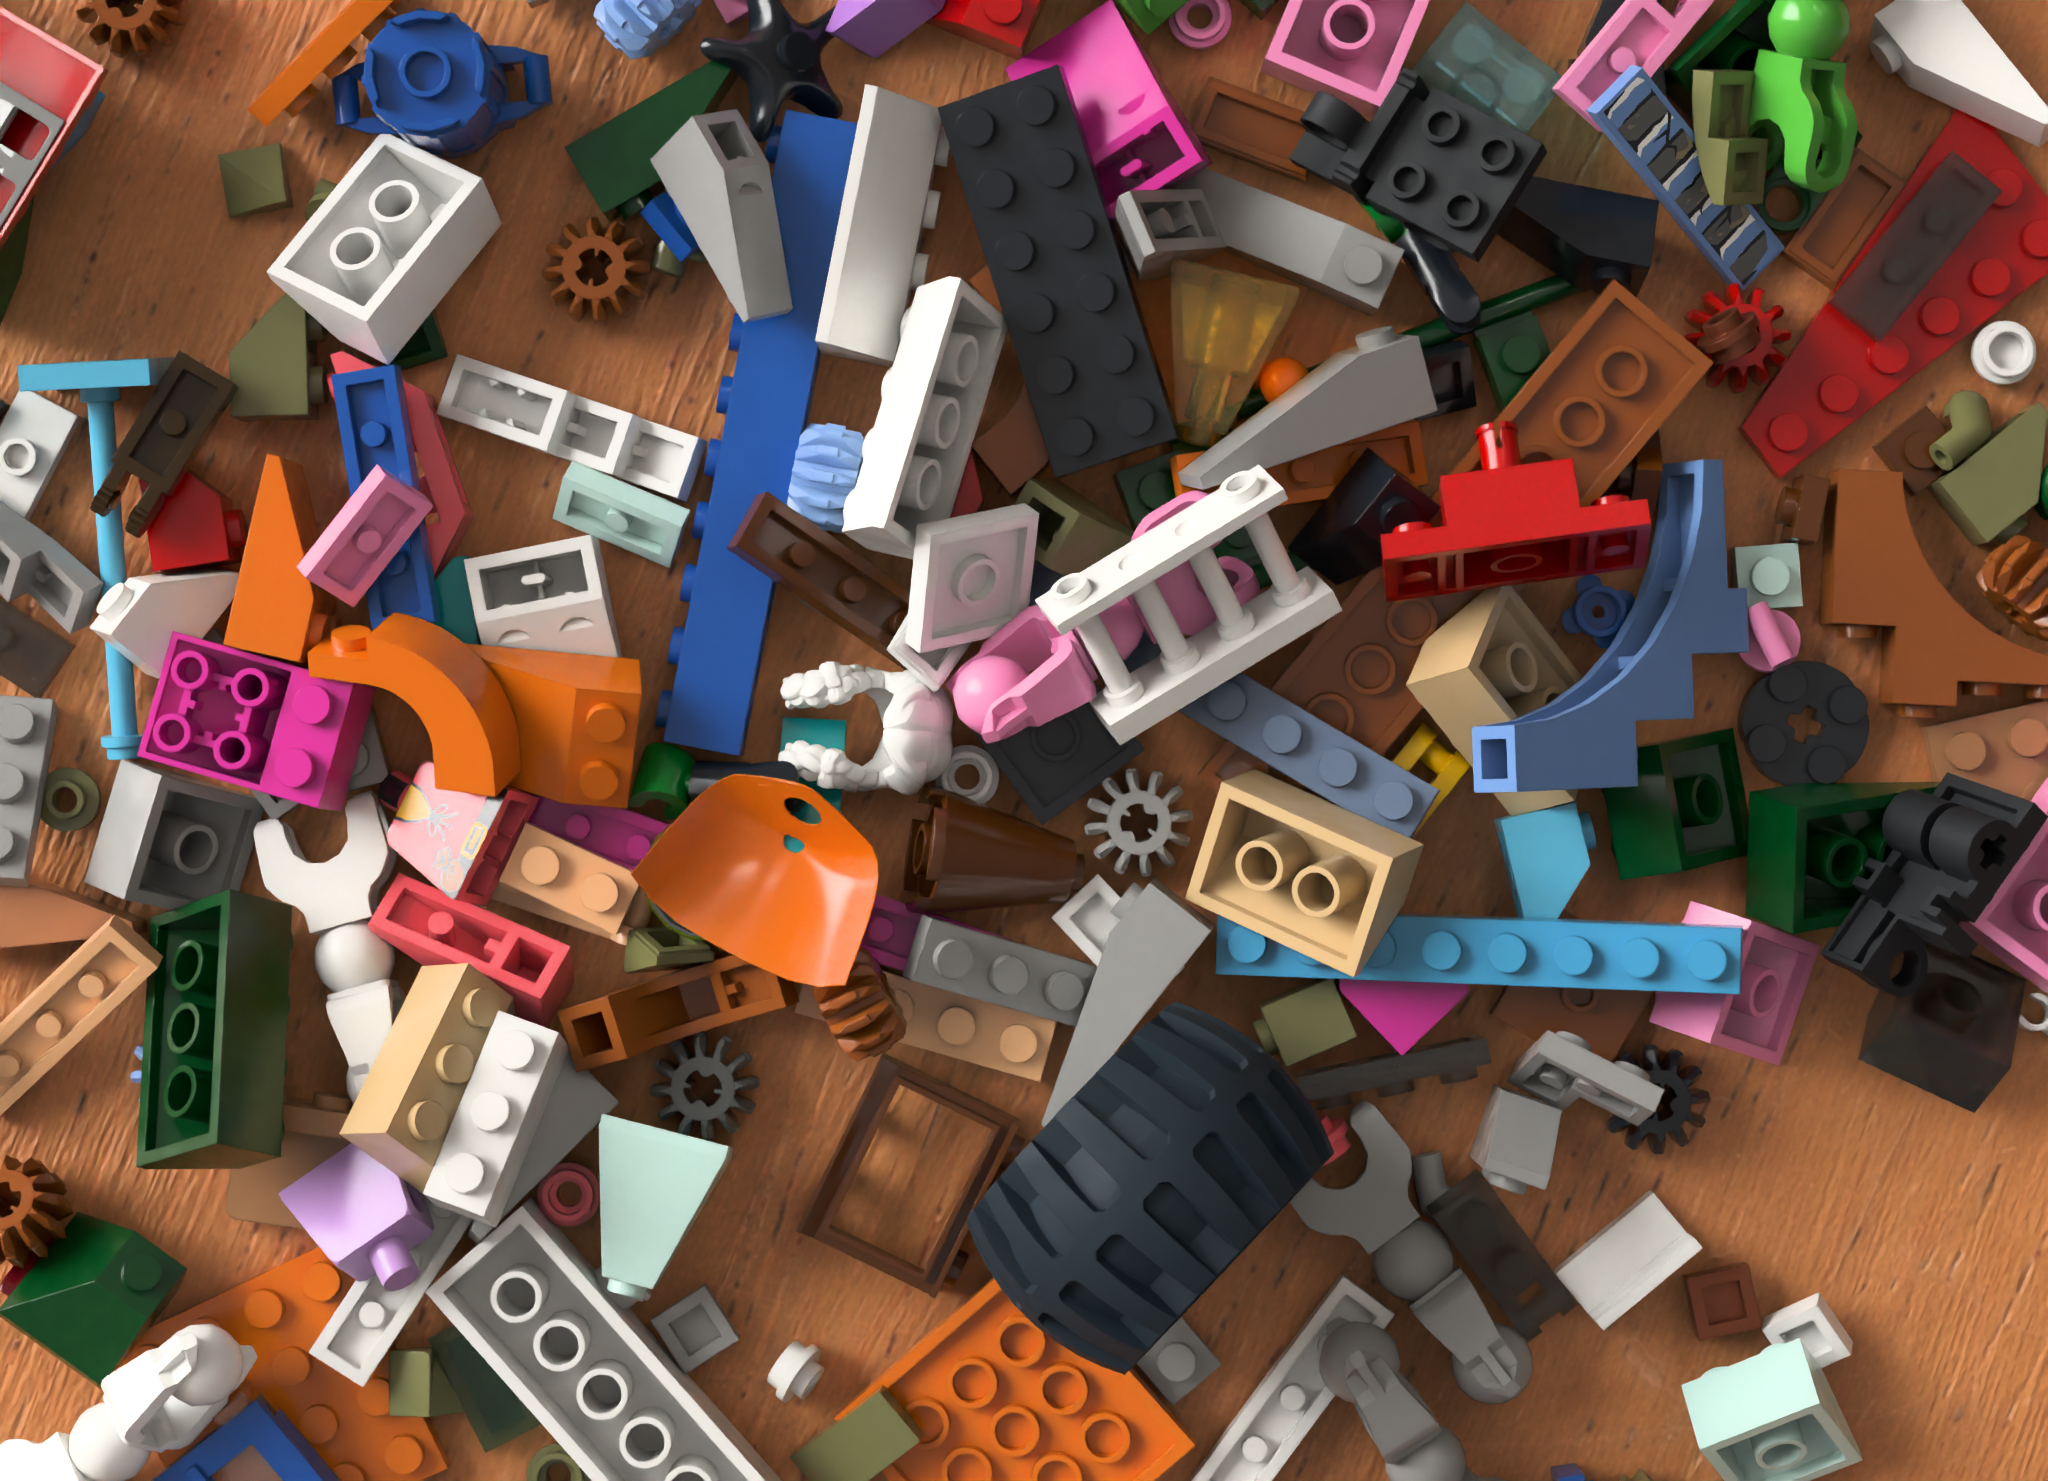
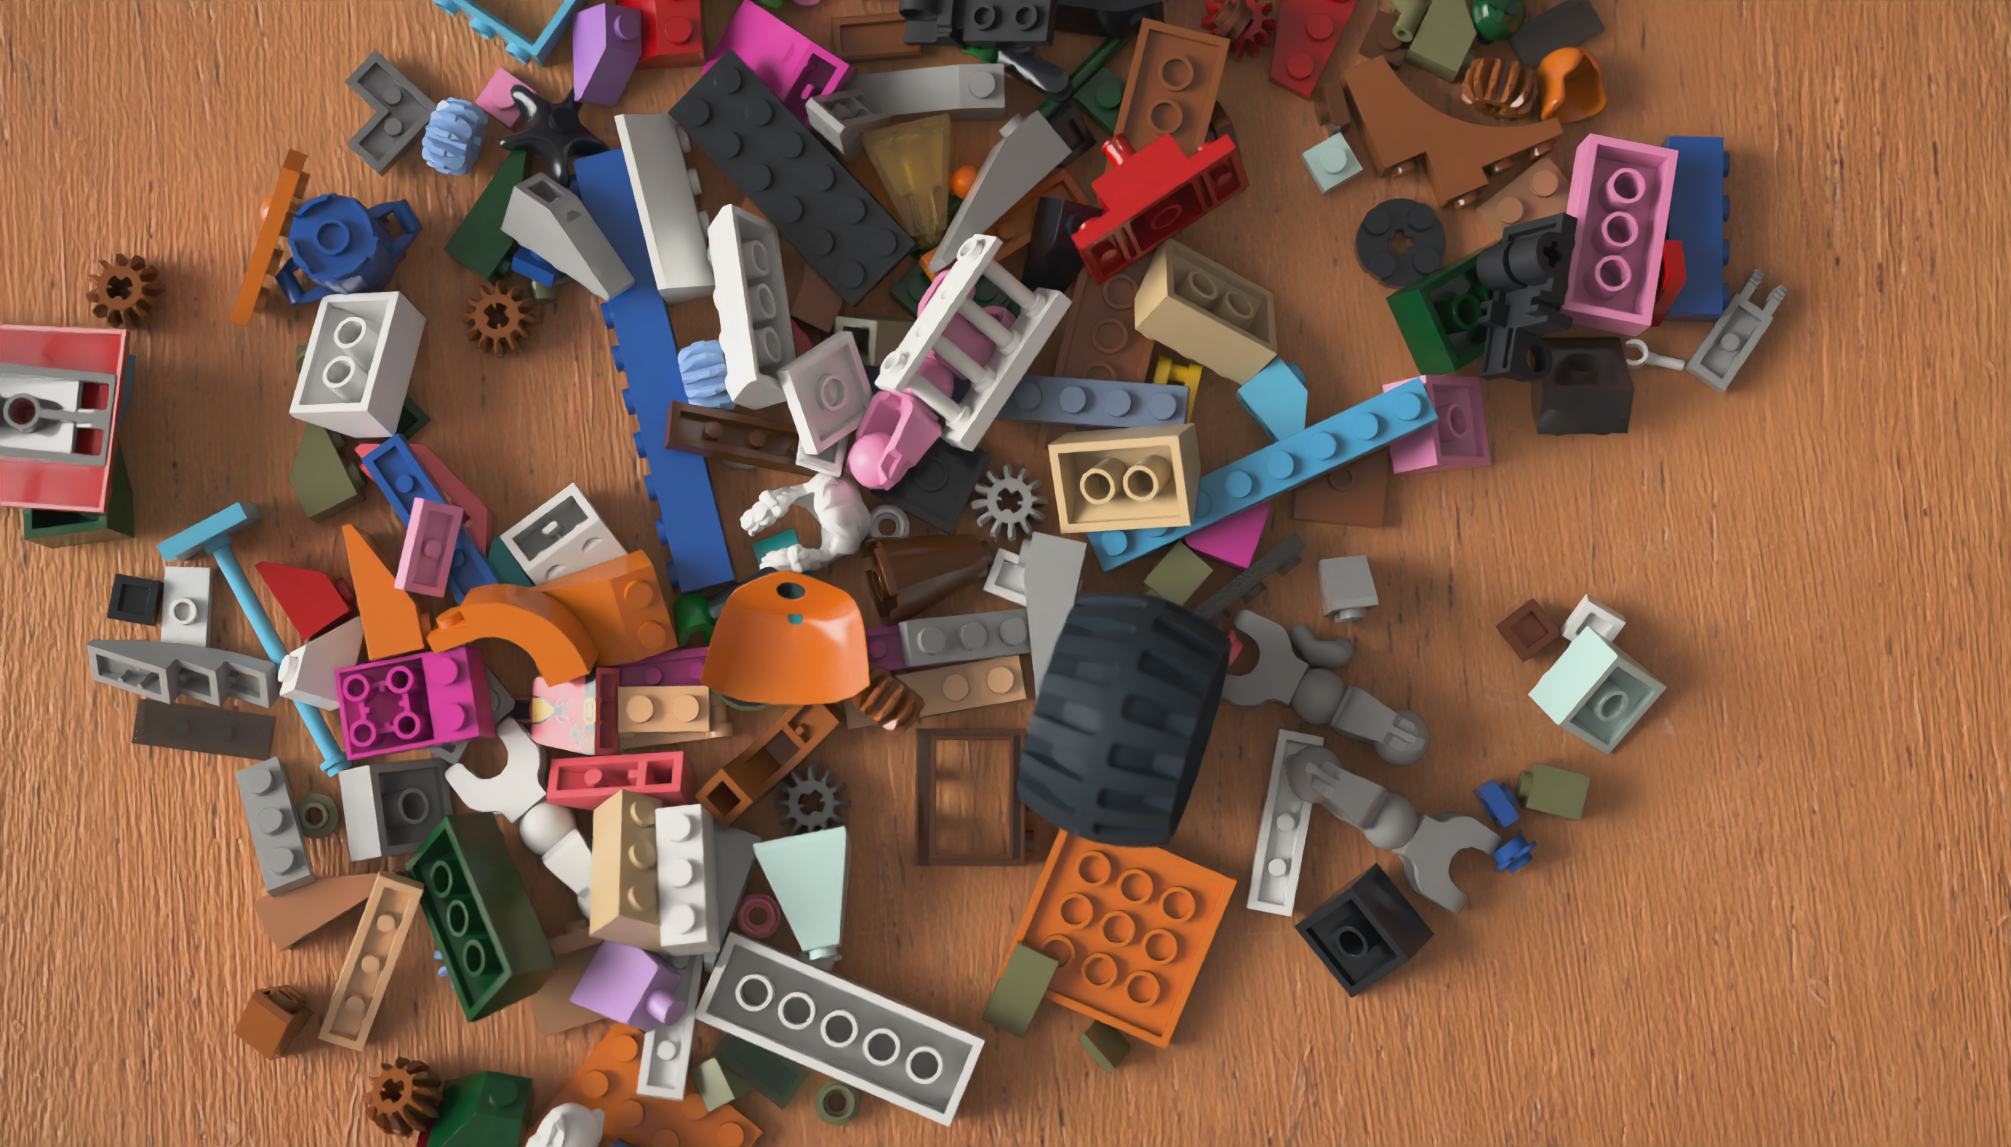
camera: 30 degrees left, 5 degrees down
(165, 439) = (273, 550): dark brown hinge -> none
(255, 180) = (256, 367): olive slope -> none
(571, 427) = (530, 426): white slope -> none
(621, 514) = (587, 464): light aqua plate -> none
(663, 950) = (745, 729): olive slope -> none
(695, 1328) = (880, 963): light grey plate -> none
(796, 1371) = (958, 959): white plate -> none
(1178, 1361) = (1199, 835): light grey plate -> none
(1500, 1253) = (1372, 666): clear smoke plate -> none
(1564, 1068) = (1355, 525): light grey plate -> none
(1591, 594) = (1227, 225): blue plate -> none
(1626, 1260) = (1454, 633): white panel -> none
(1647, 671) = (1283, 252): medium blue arch -> none
(1675, 1101) = (1436, 519): black gear -> none
(1684, 809) = (1342, 329): dark green slope -> none
(1772, 639) = (1350, 200): bright pink plate -> none

